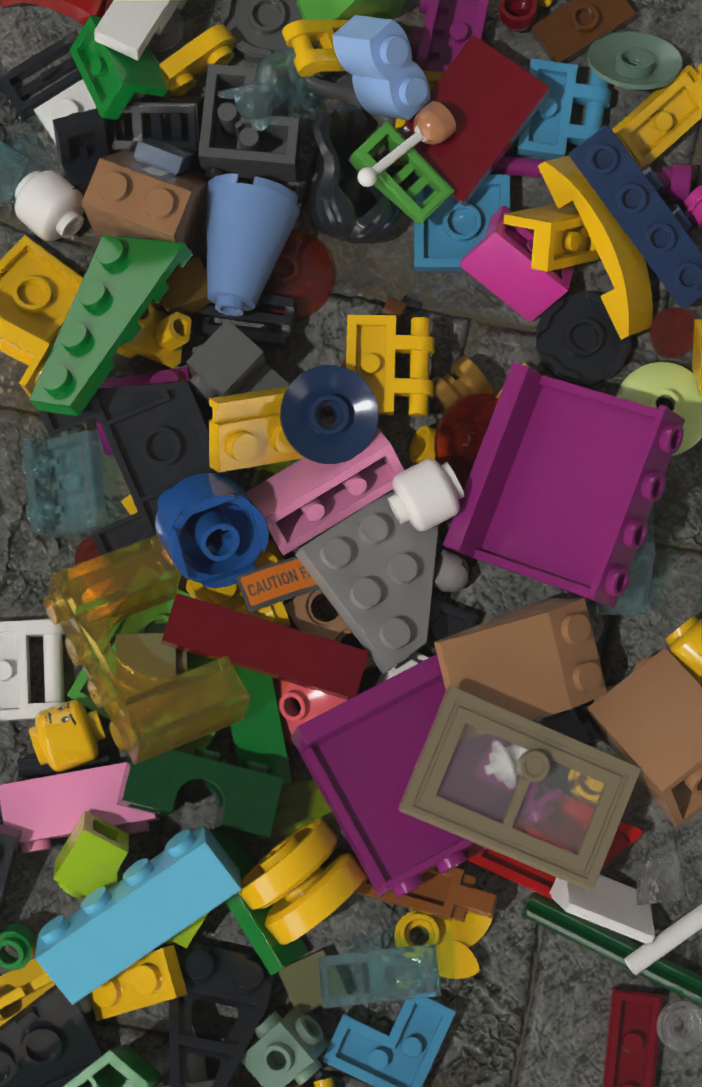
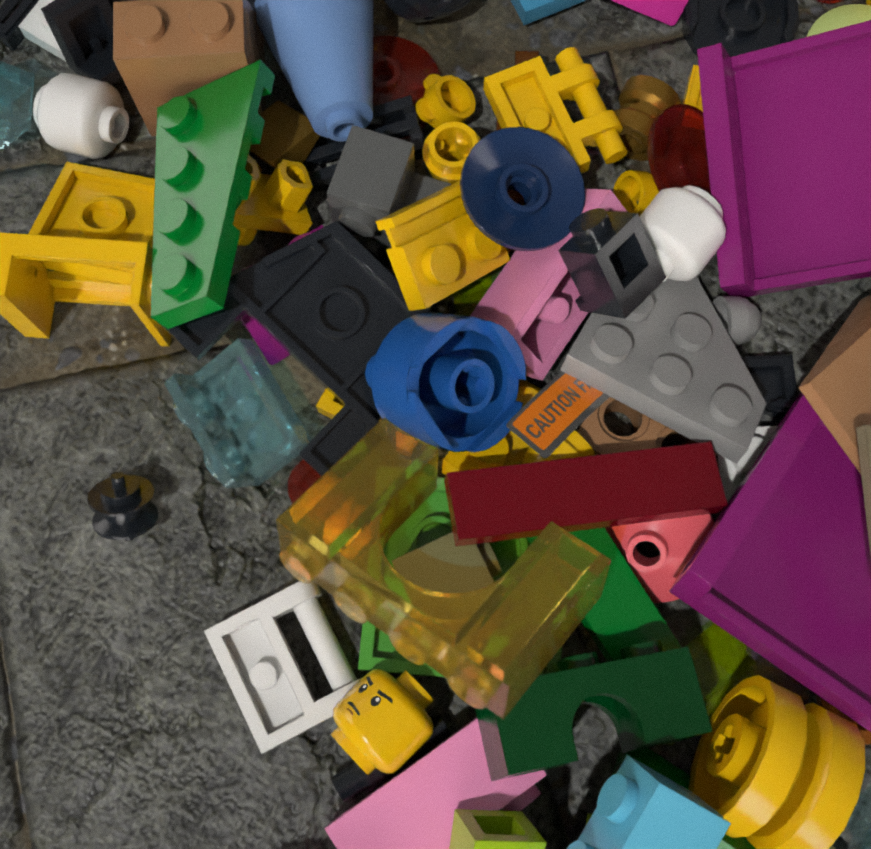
camera: 30 degrees left, 5 degrees down
(296, 352) = (447, 150): none -> yellow cone
(332, 313) = (445, 100): none -> yellow plate
(357, 488) = (609, 250): none -> black brick

